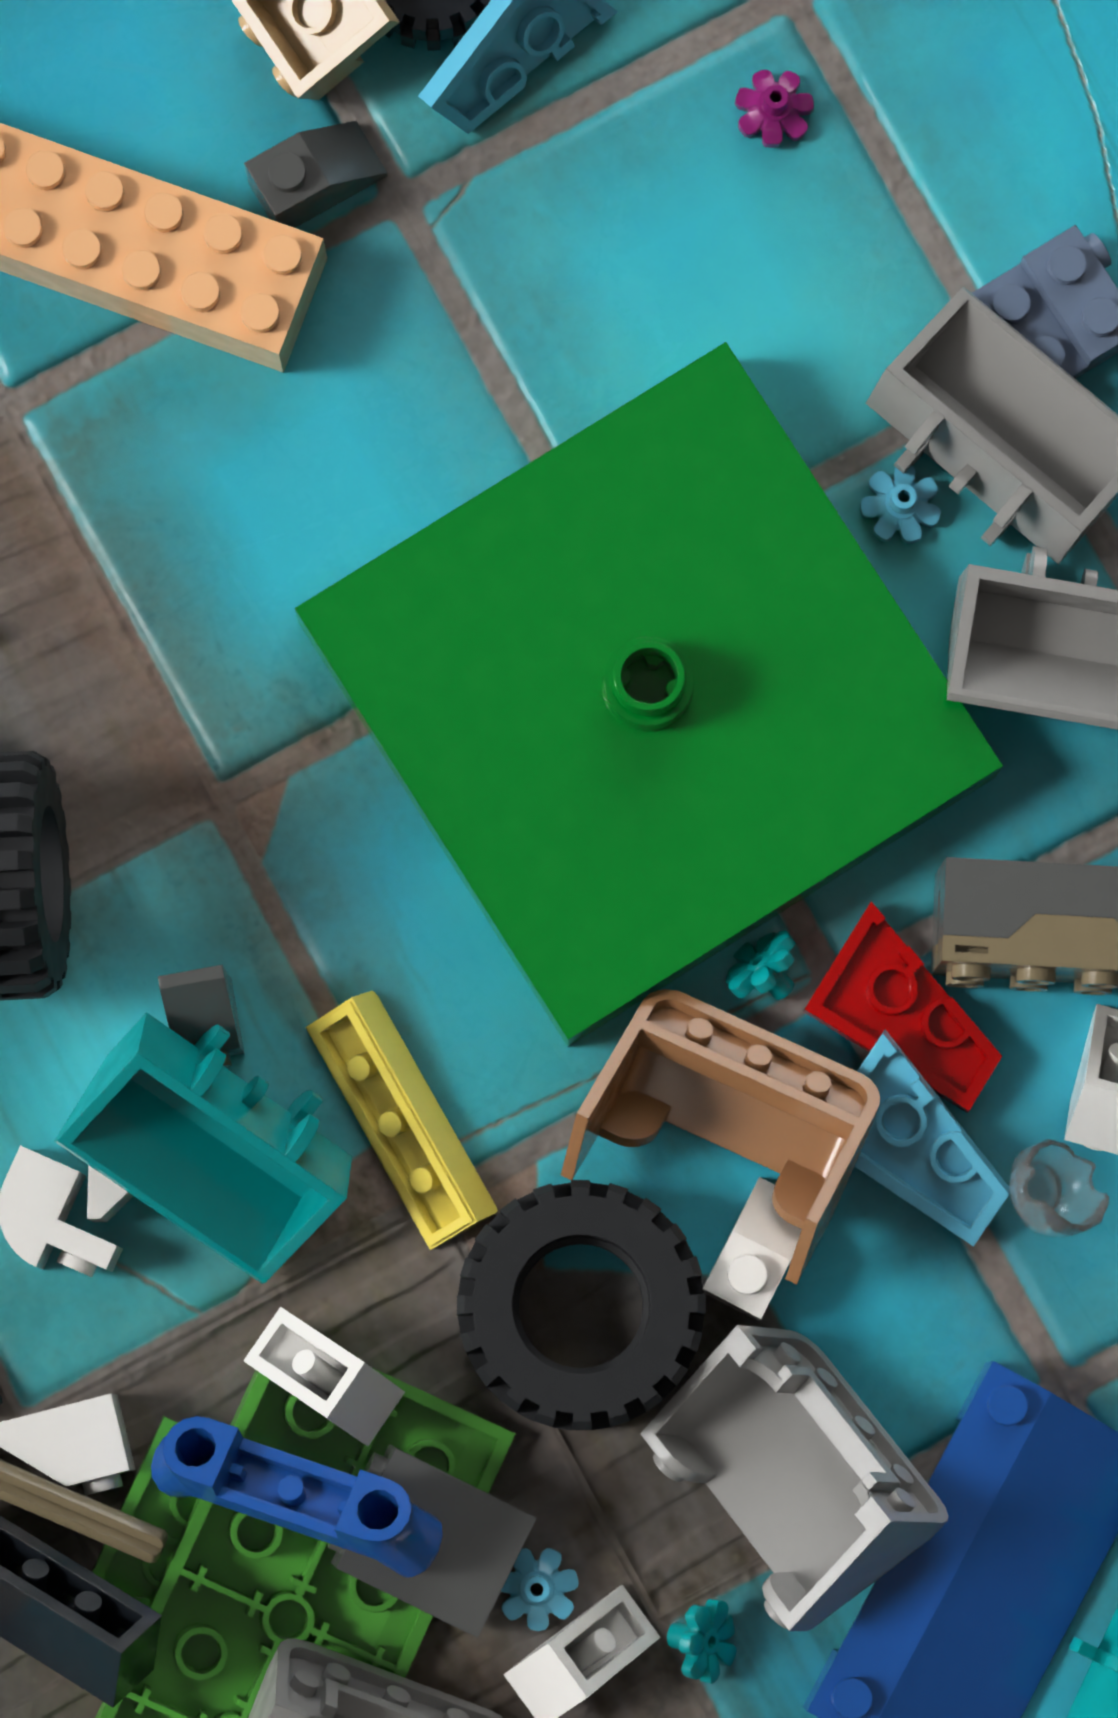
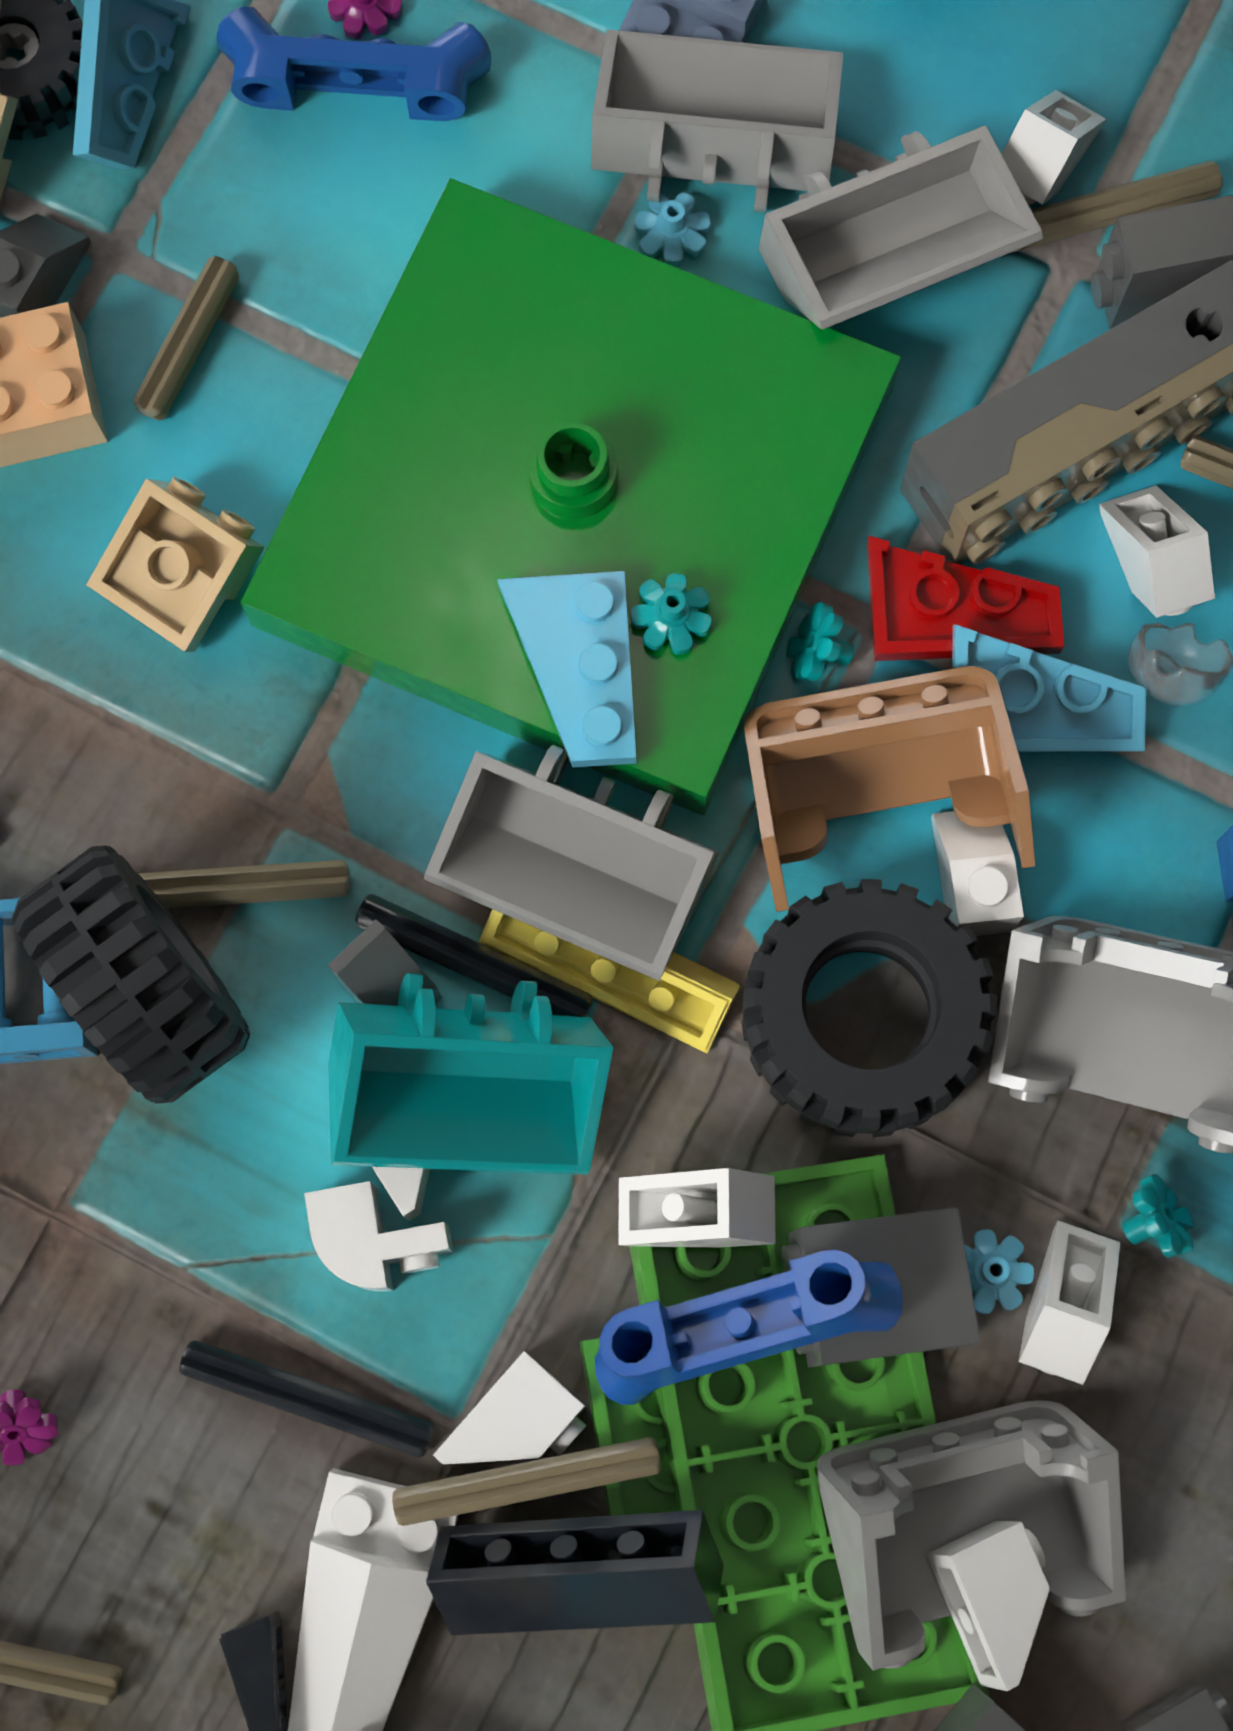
camera: 30 degrees left, 5 degrees down
(147, 850) = (250, 883): none -> dark tan axle
(268, 527) = (175, 561): none -> tan plate
(288, 1038) = (469, 956): none -> black axle
(410, 325) = (186, 338): none -> dark tan axle
(425, 1015) = (572, 861): none -> light grey piece
(542, 852) = (581, 657): none -> medium azure wing
(643, 878) = (671, 614): none -> teal plant
(779, 226) = (428, 76): none -> blue plate

